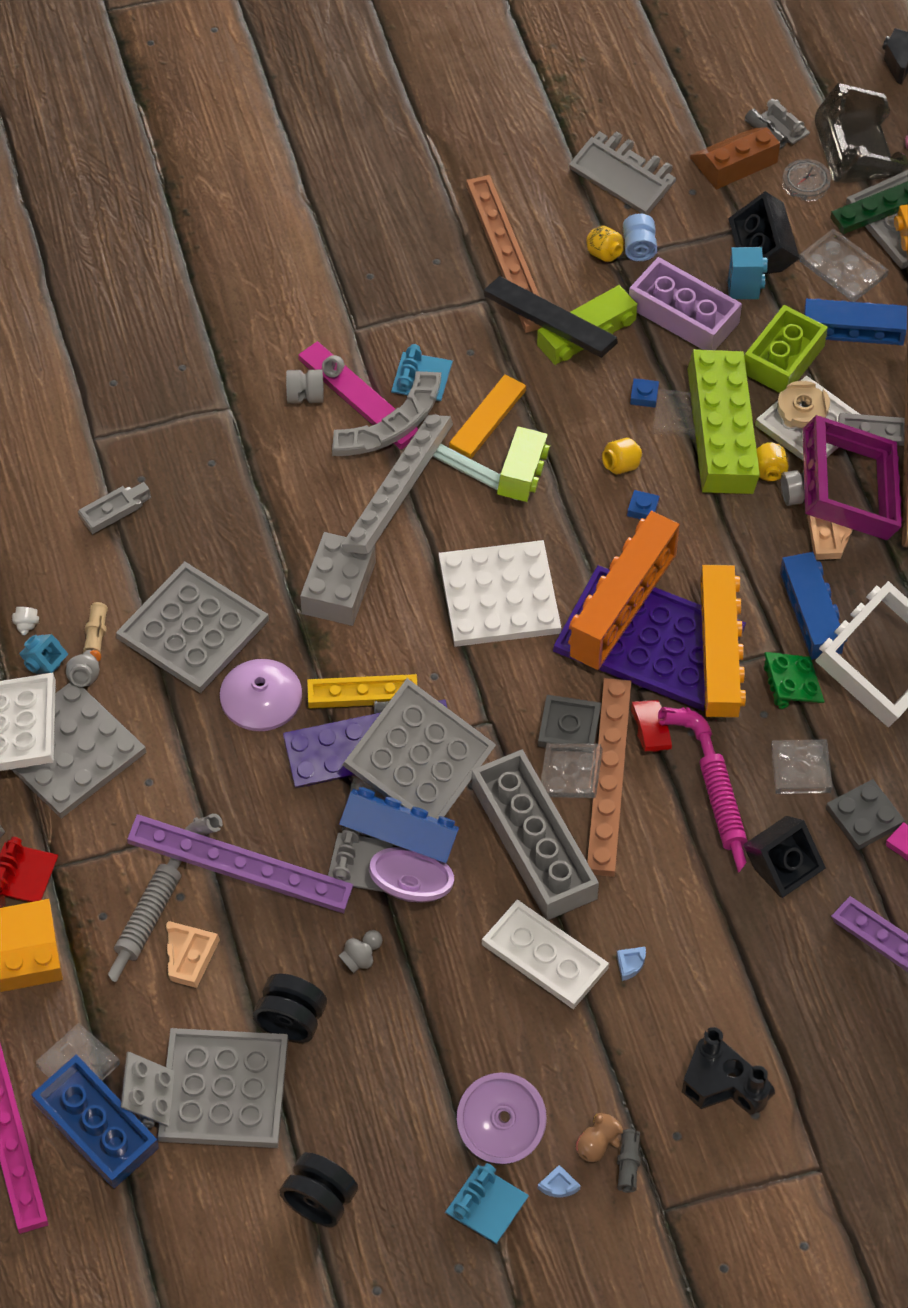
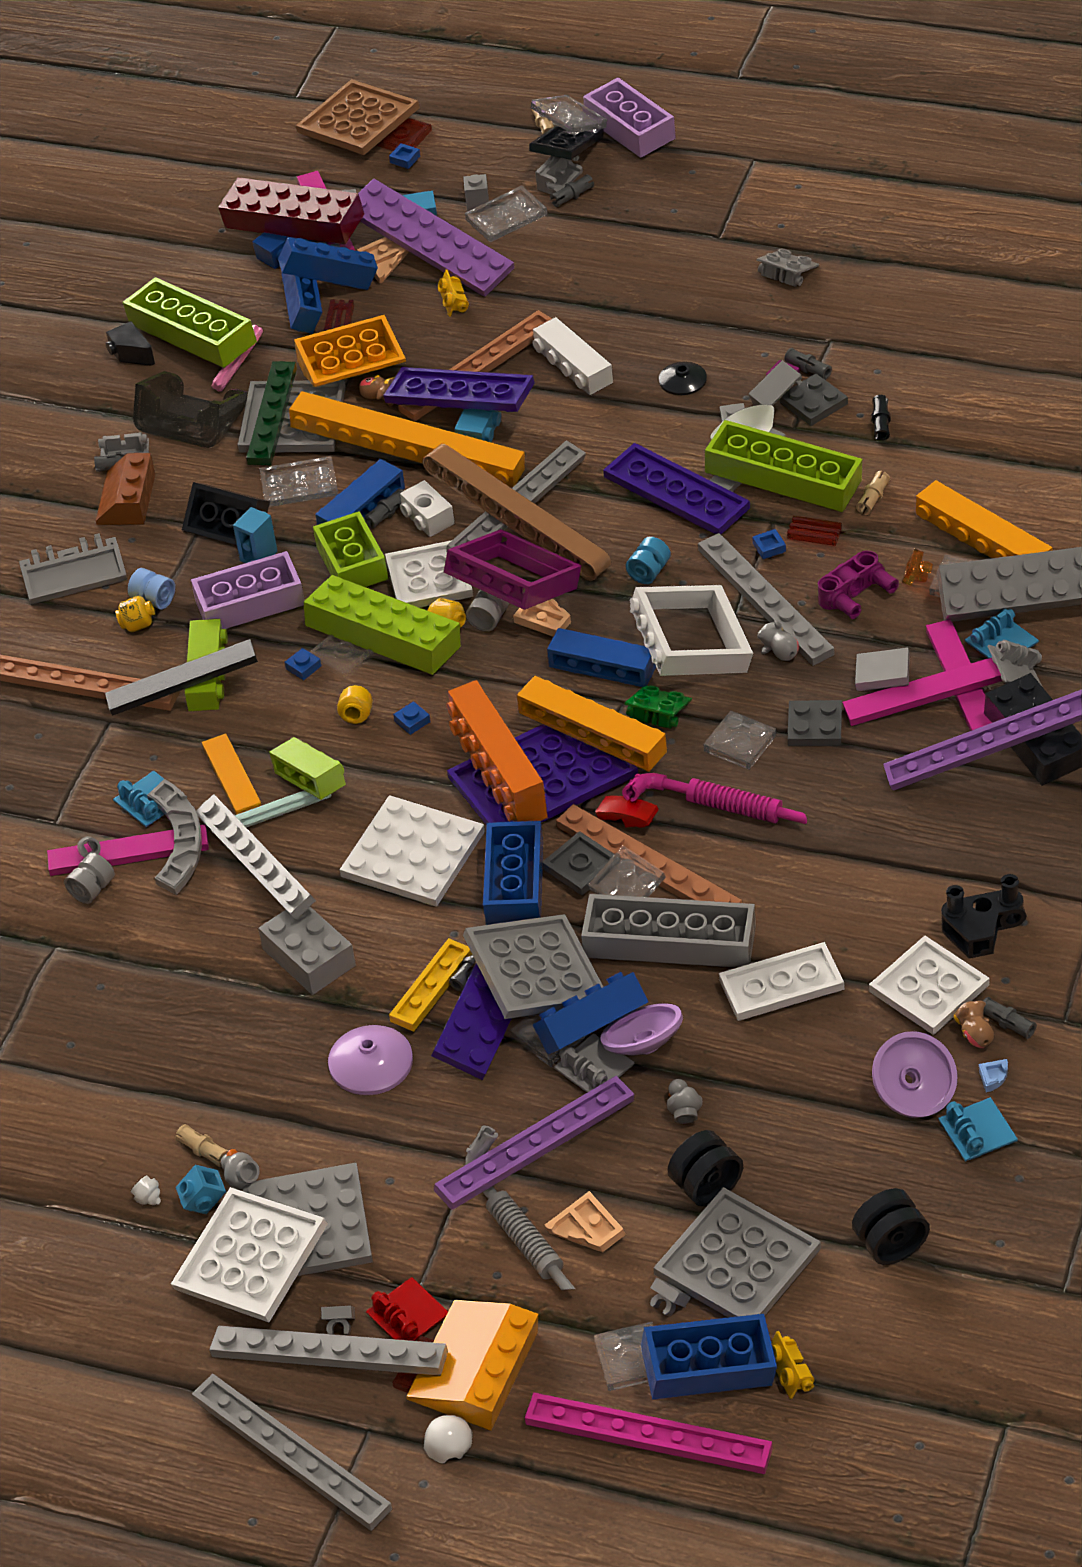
camera: 50 degrees left, 10 degrees down
(113, 506) = (86, 1074): light grey hinge -> none
(130, 1200) = (791, 1375): none -> yellow hinge
(147, 1090) = (705, 1302): light grey hinge -> none
(153, 1050) = (669, 1294): none -> light grey tile
(192, 627) = (262, 1073): light grey plate -> none
(515, 680) = (513, 871): none -> blue brick
(621, 1075) = (928, 984): none -> white plate
(630, 961) = (829, 932): light blue tile -> none
(785, 855) = (813, 785): black slope -> none
(801, 391) = (418, 576): tan plate -> none
(806, 179) = (192, 463): clear tile -> none
(863, 345) = (384, 509): none -> dark grey pin
(883, 374) = (426, 508): none -> white brick

